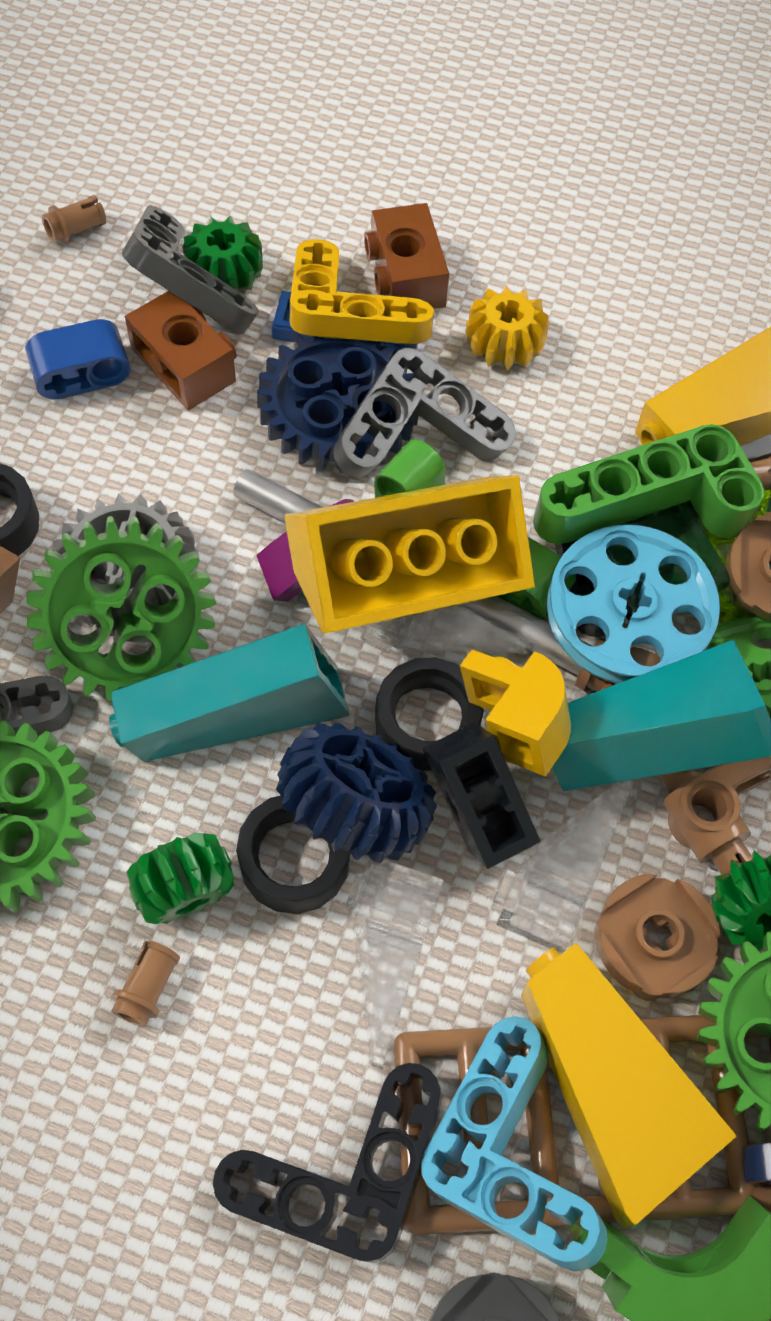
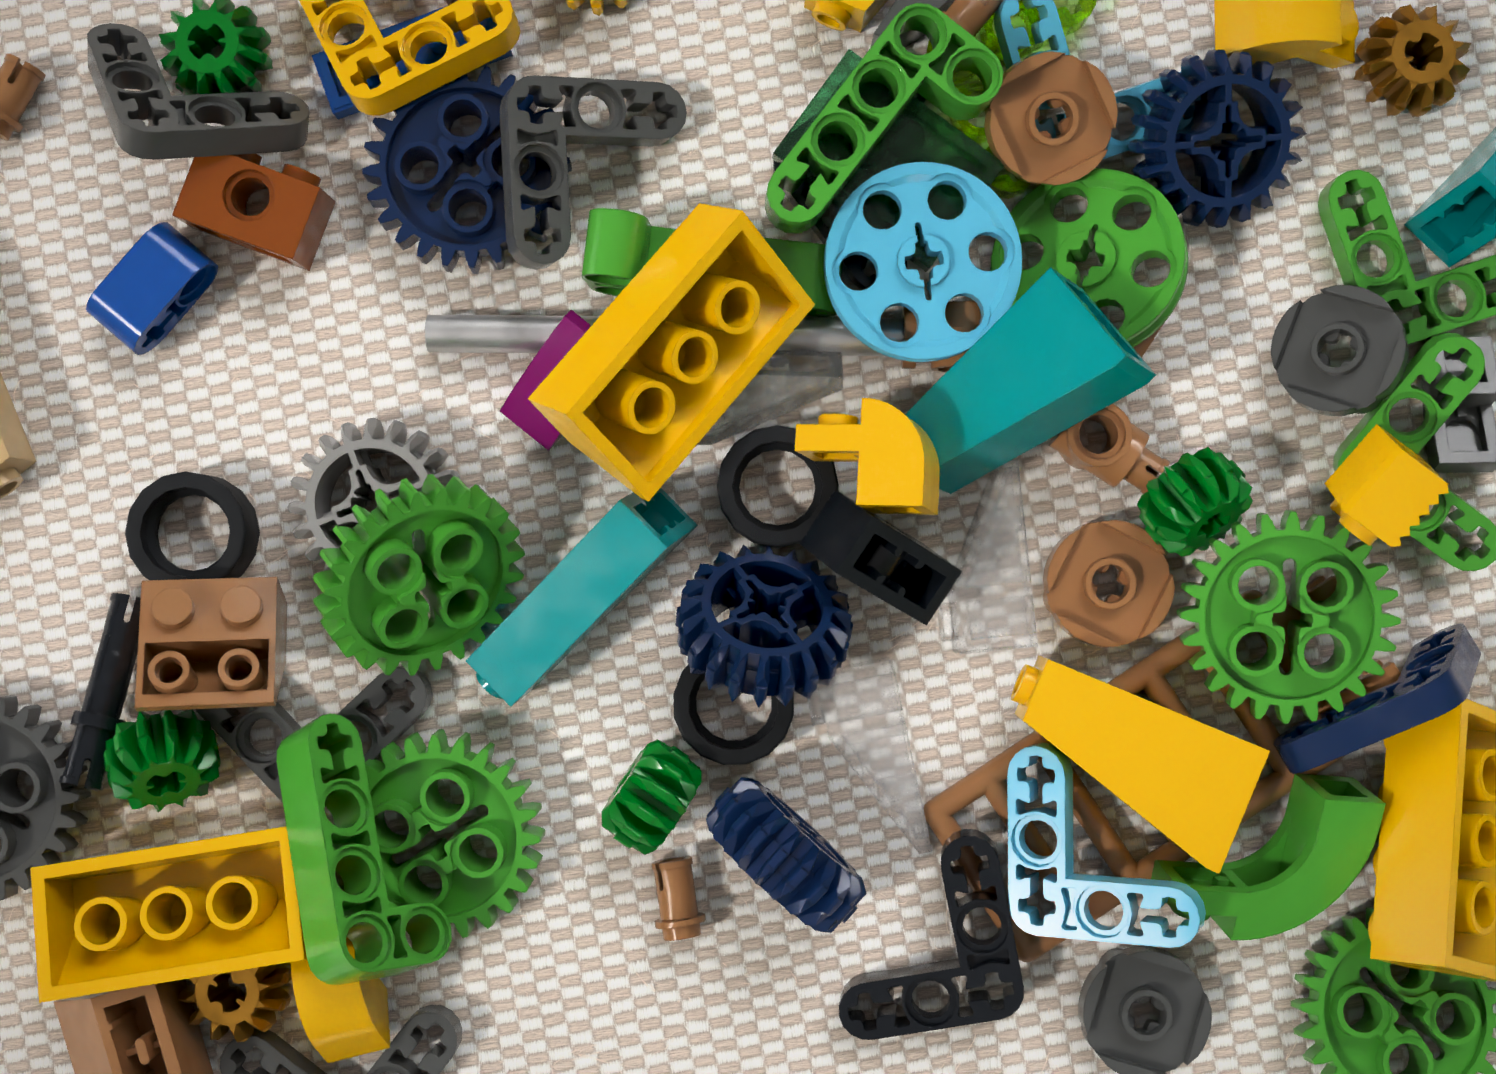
camera: 25 degrees left, 25 degrees up
(260, 987) = (785, 855): none -> dark blue gear

